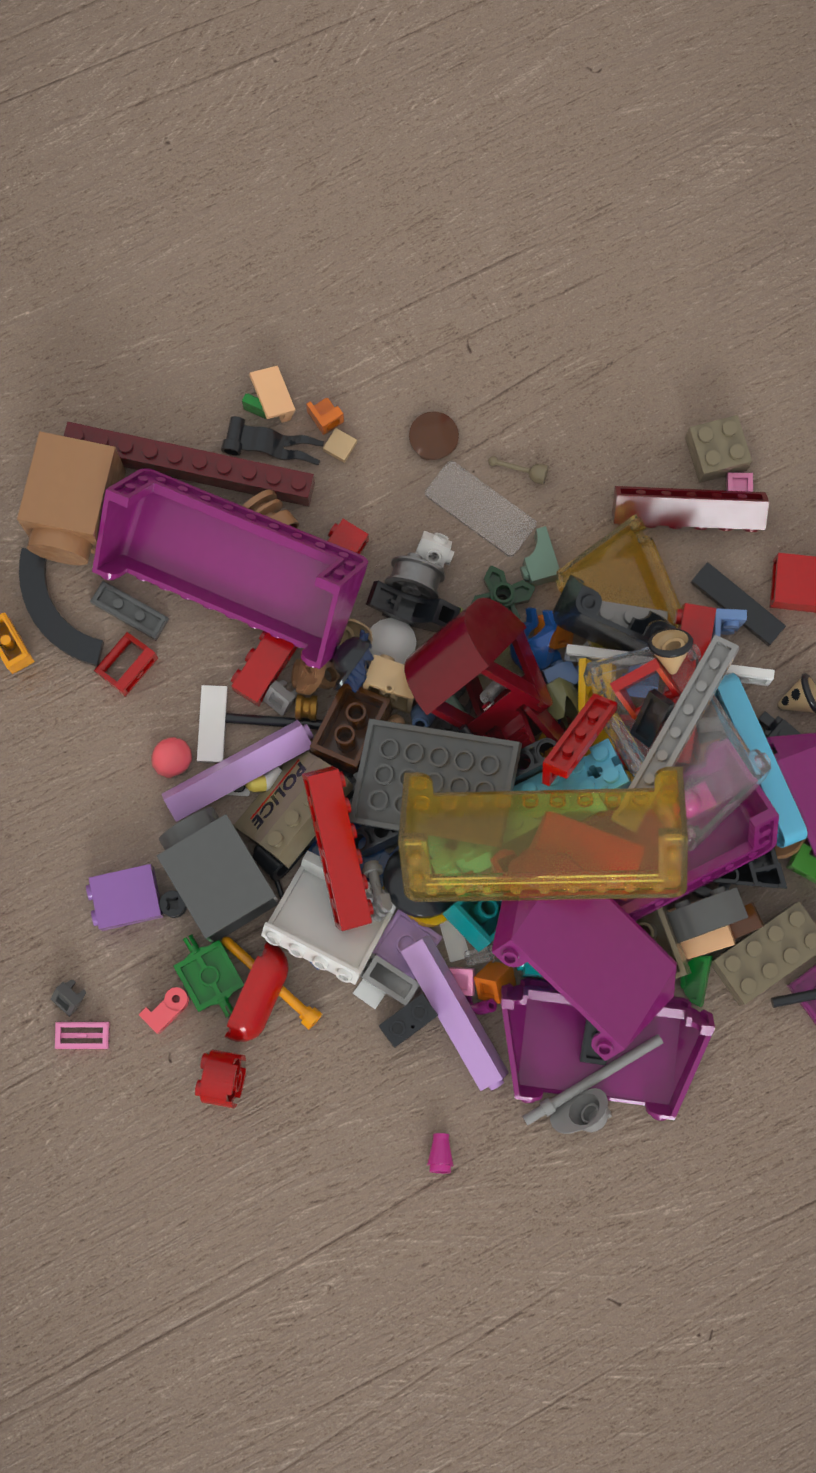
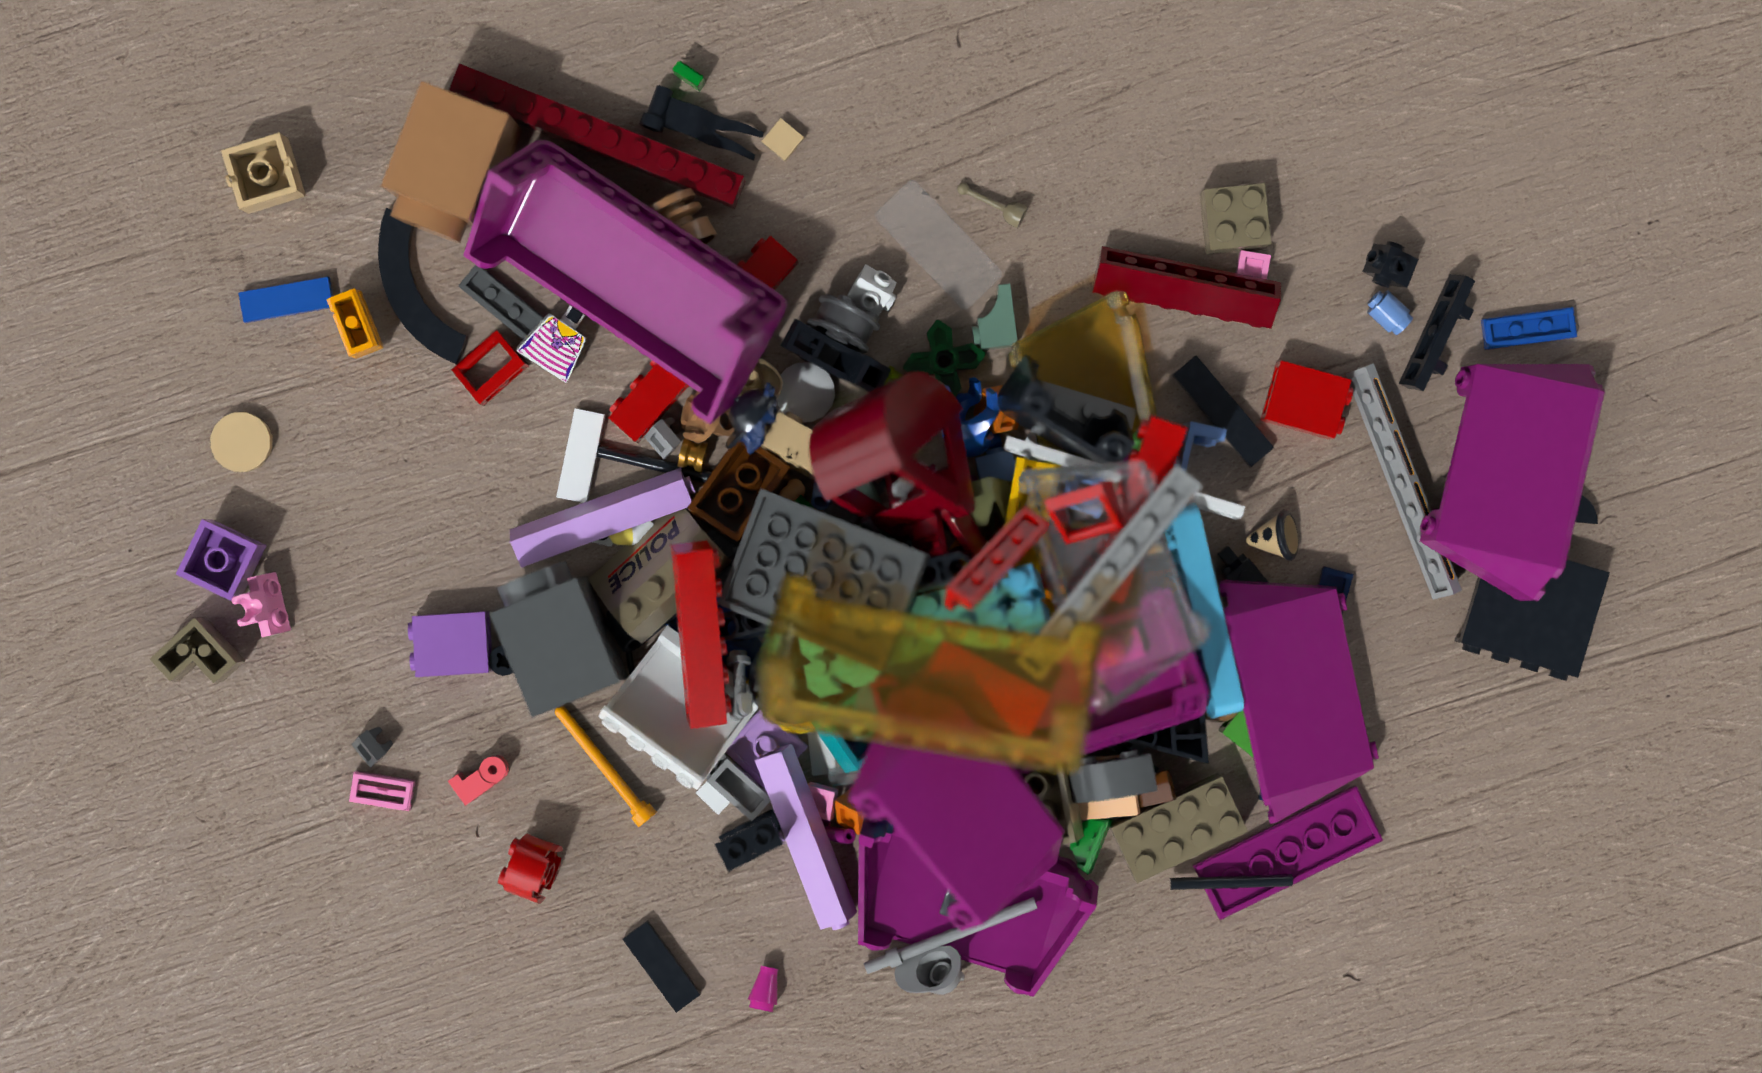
camera: 15 degrees right, 10 degrees up
(171, 757) = (527, 487): coral hair -> none
(178, 634) = (555, 343): none -> torso
(209, 975) = (534, 748): green plate -> none
(258, 995) = (587, 780): red brick -> none
(273, 393) = (710, 65): light nougat panel -> none
(325, 415) = (771, 99): orange panel -> none
(347, 1149) = (661, 966): none -> black tile
(433, 435) = (897, 145): reddish brown dish -> none
(651, 717) = (1086, 548): black tile -> none
(670, 647) = (1121, 472): tan hat -> none

